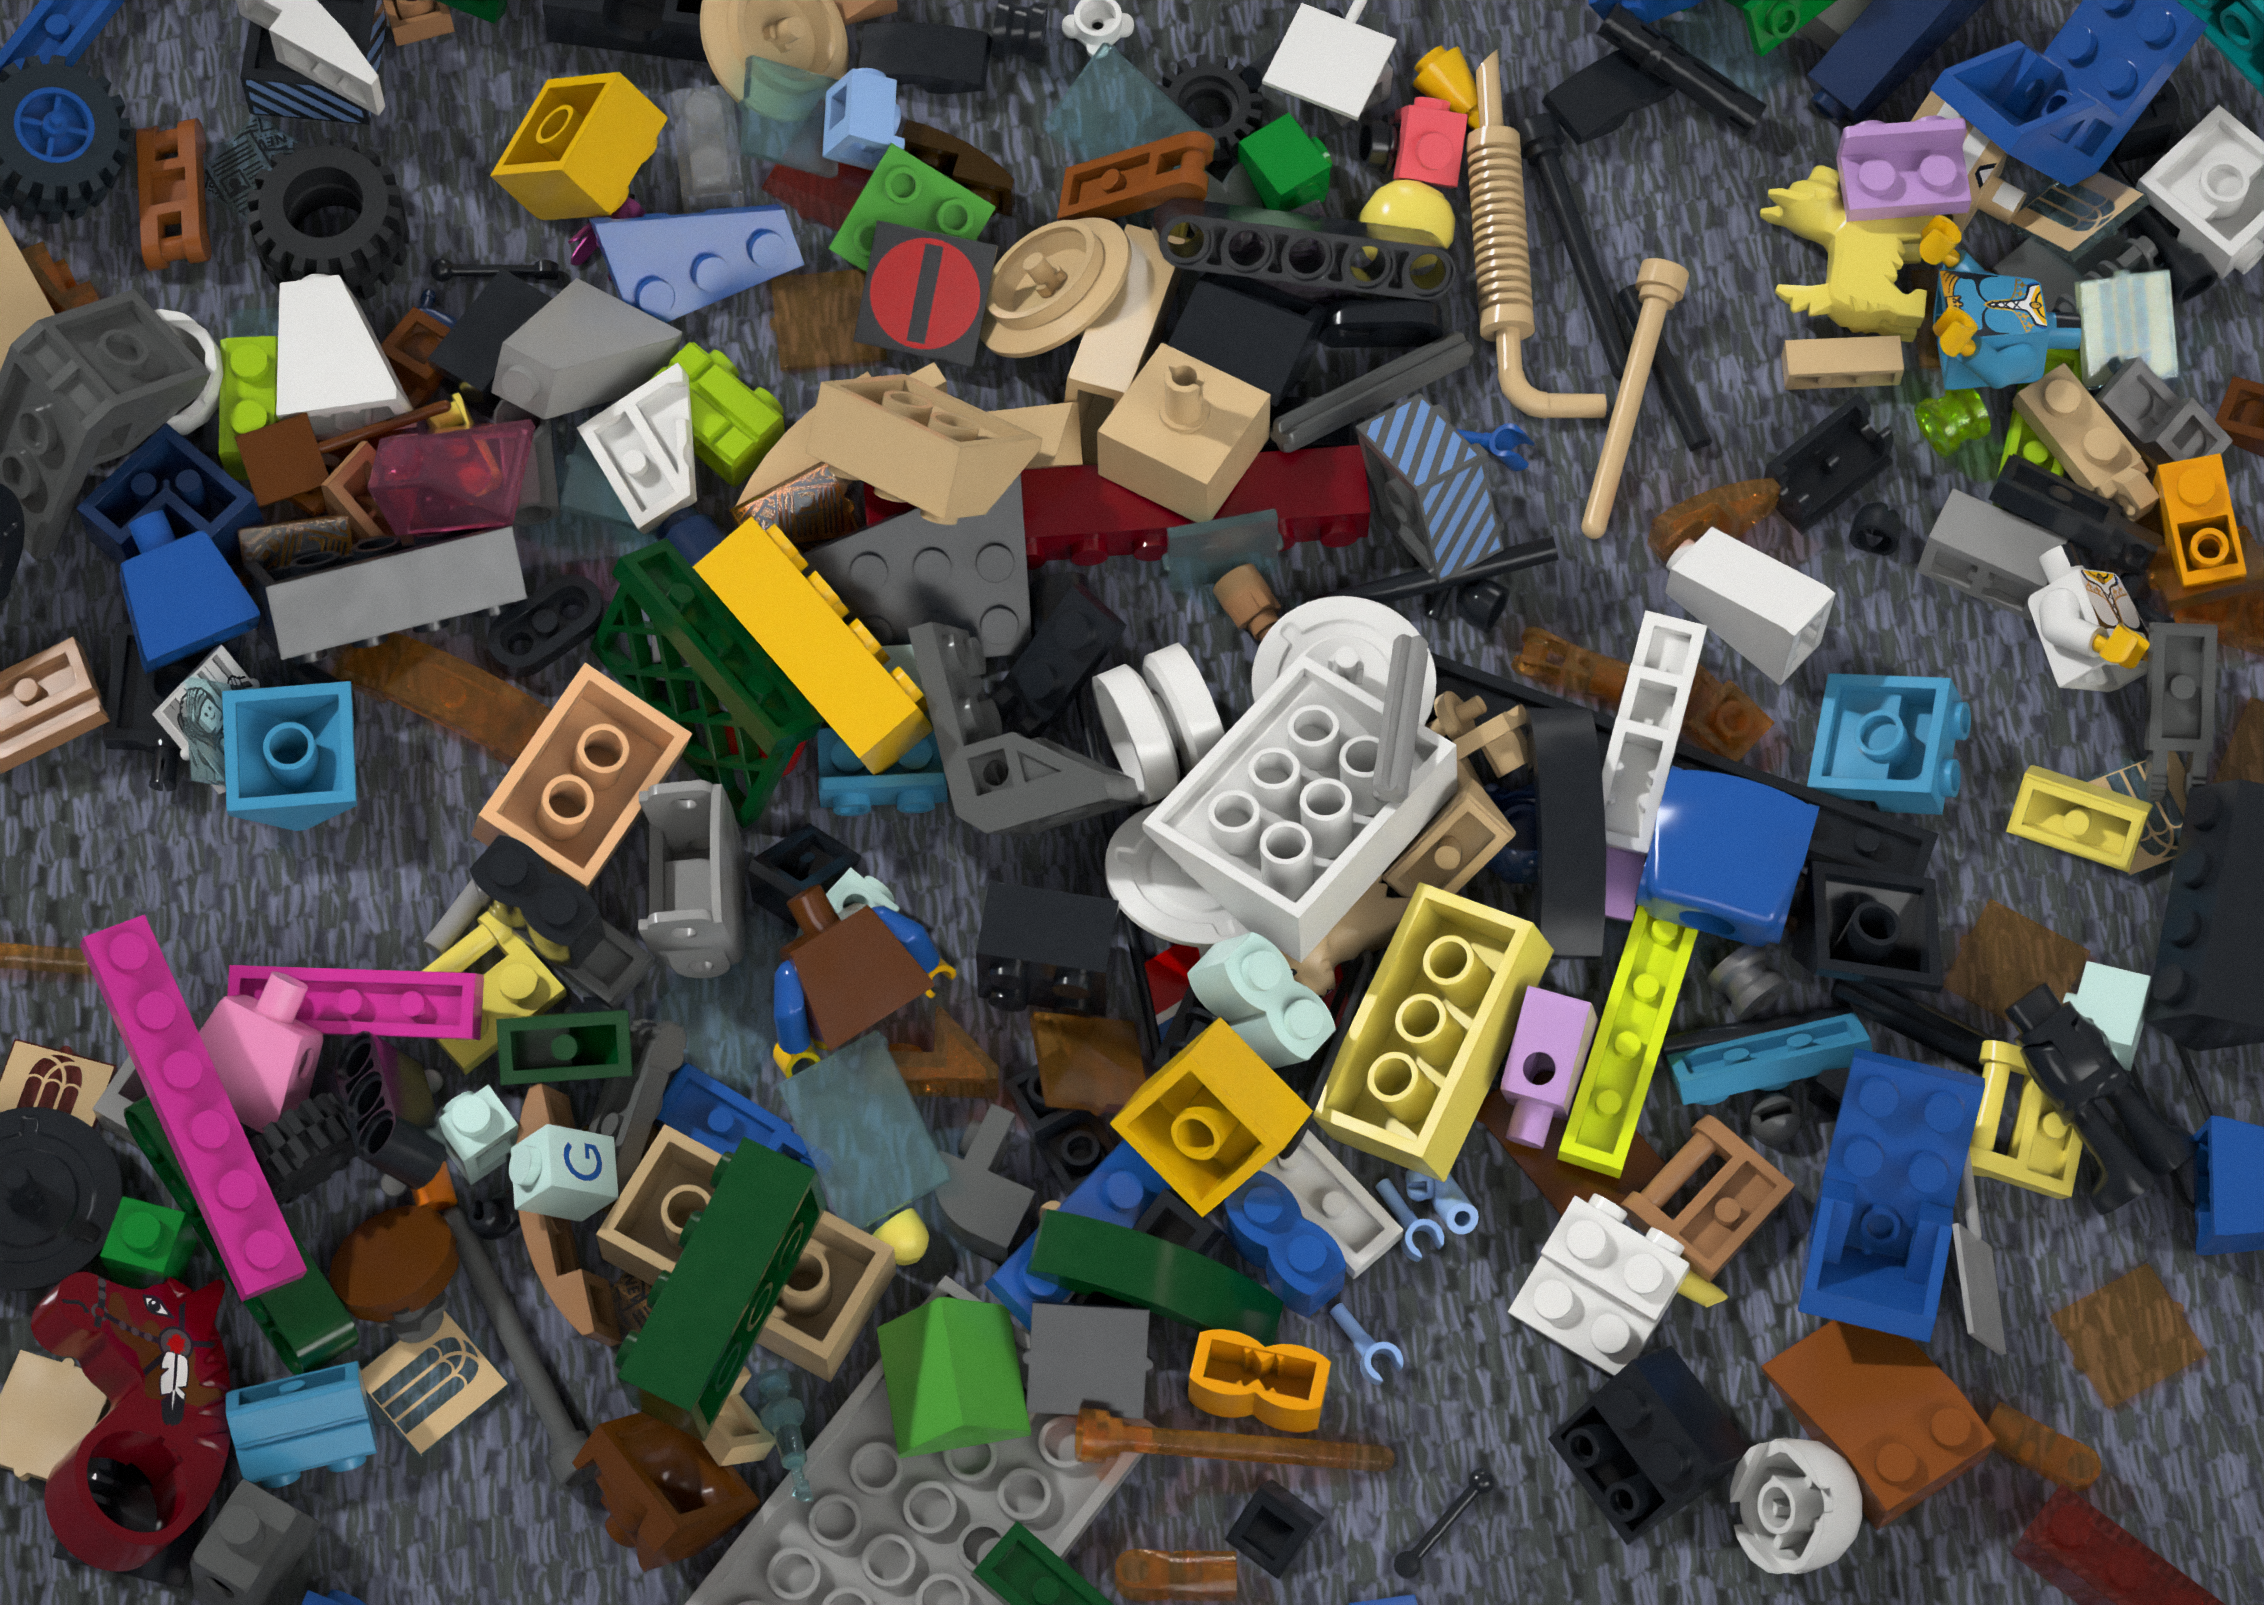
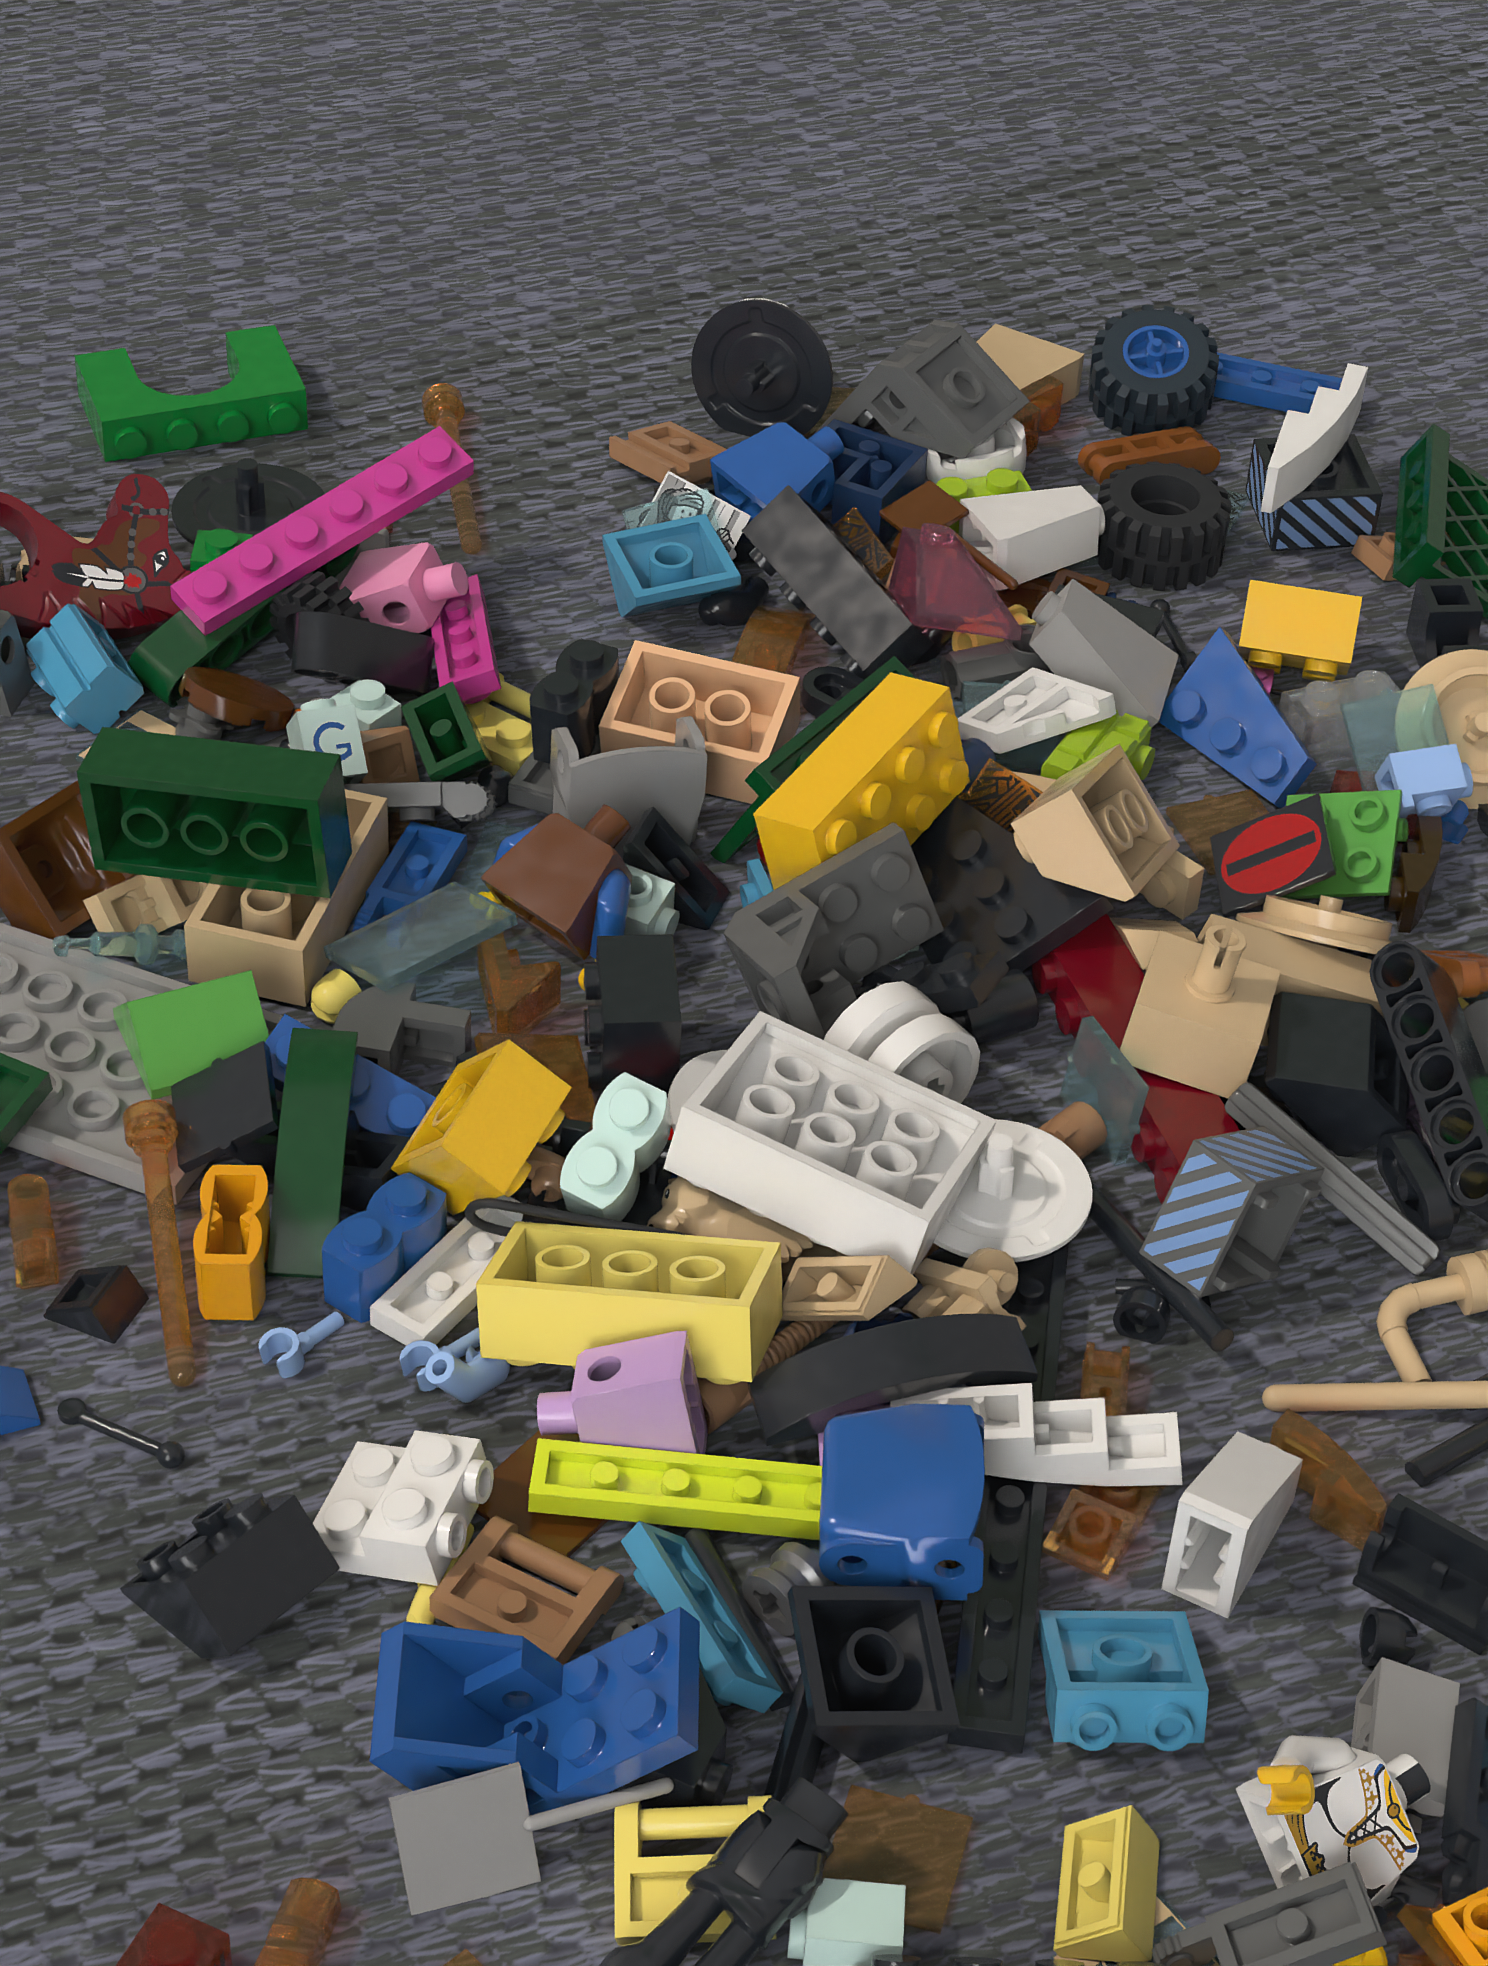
camera: 75 degrees right, 25 degrees down
(1400, 719) = (938, 1169): light grey axle -> none
(1501, 443) = (1329, 1302): blue hand -> none
(1795, 1505) = (173, 1707): white cylinder -> none
(1883, 1412) = (285, 1786): dark orange slope -> none

